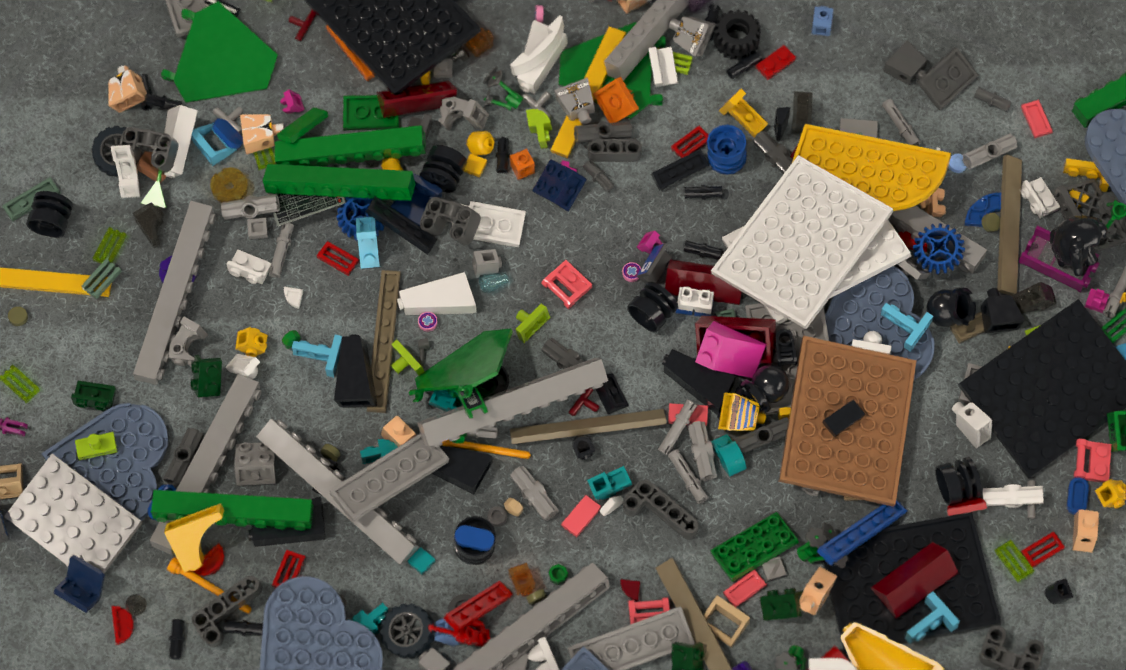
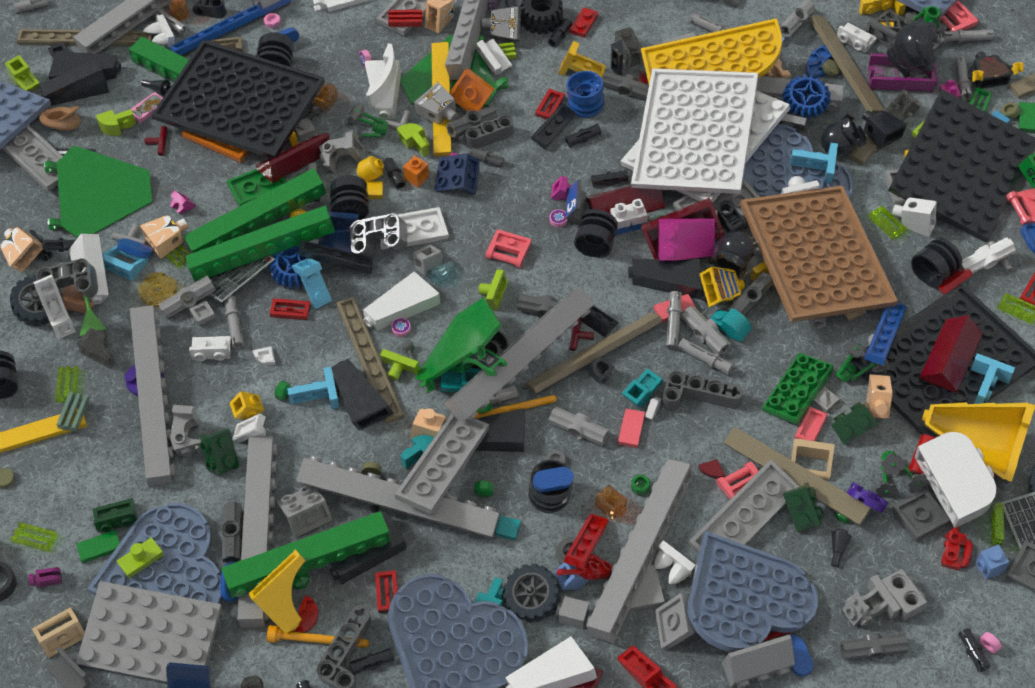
camera: 25 degrees left, 10 degrees down
(68, 417) = (98, 546): none -> green tile
(220, 530) = (300, 581): none -> green tile
(302, 125) = (201, 214): green tile -> none
(418, 515) = (484, 488): none -> green tile
(513, 507) = (567, 445): tan tile -> none
(536, 597) = (632, 512): olive tile -> none
(843, 418) = (815, 249): black tile -> none
(947, 430) = (884, 223): none -> clear neon green tile

